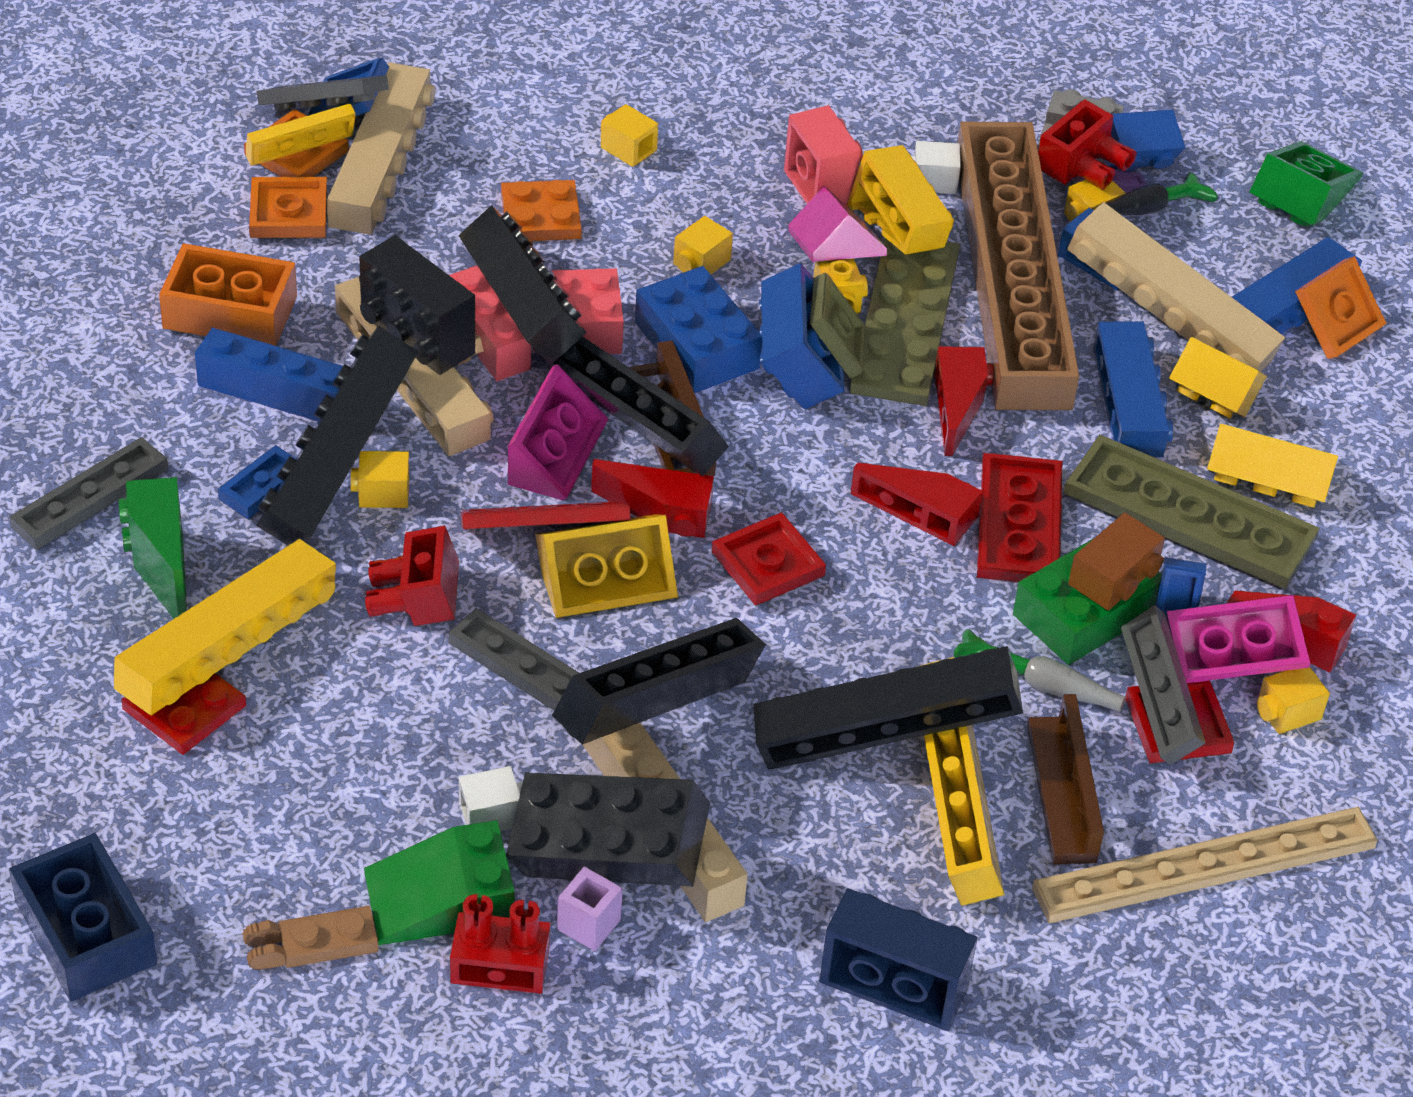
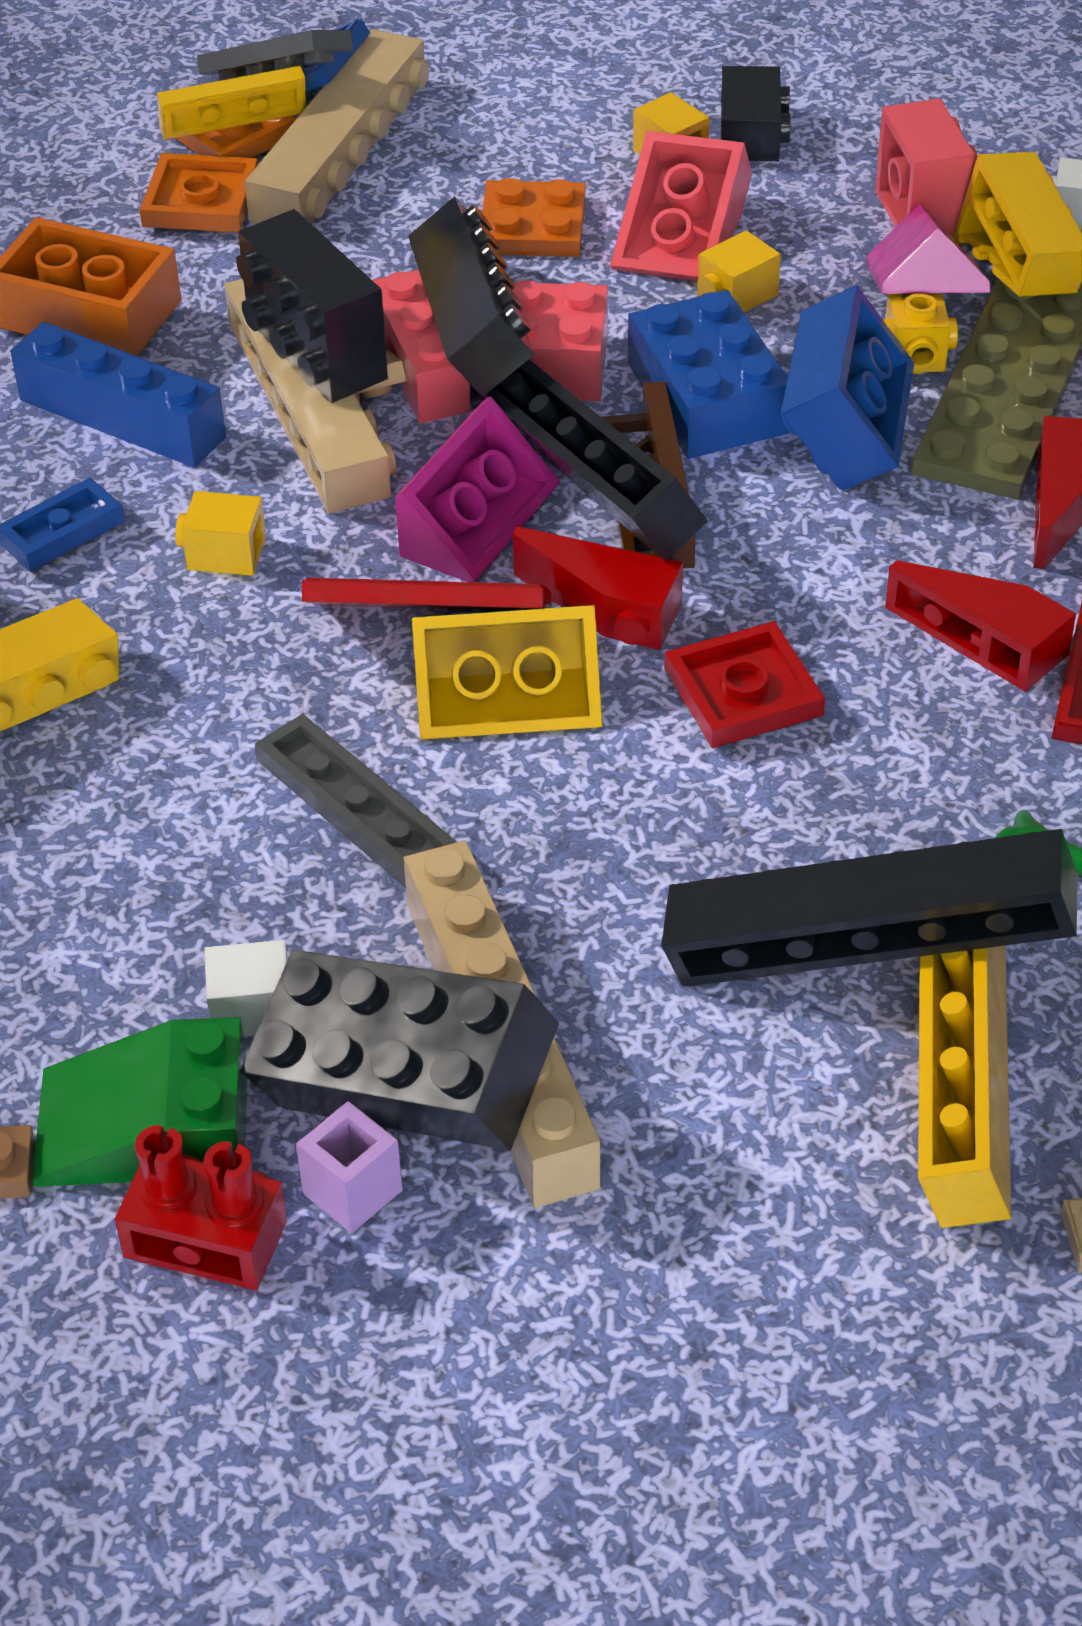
camera: 15 degrees right, 0 degrees up
(337, 438) = (158, 478): black brick -> none
(425, 576) = (233, 671): red brick -> none
(650, 197) = (681, 203): none -> coral slope
(657, 680) = (518, 834): black brick -> none
(686, 114) = (755, 110): none -> black brick
(837, 325) = (901, 376): olive tile -> none
(897, 959) = (814, 1303): dark blue brick -> none

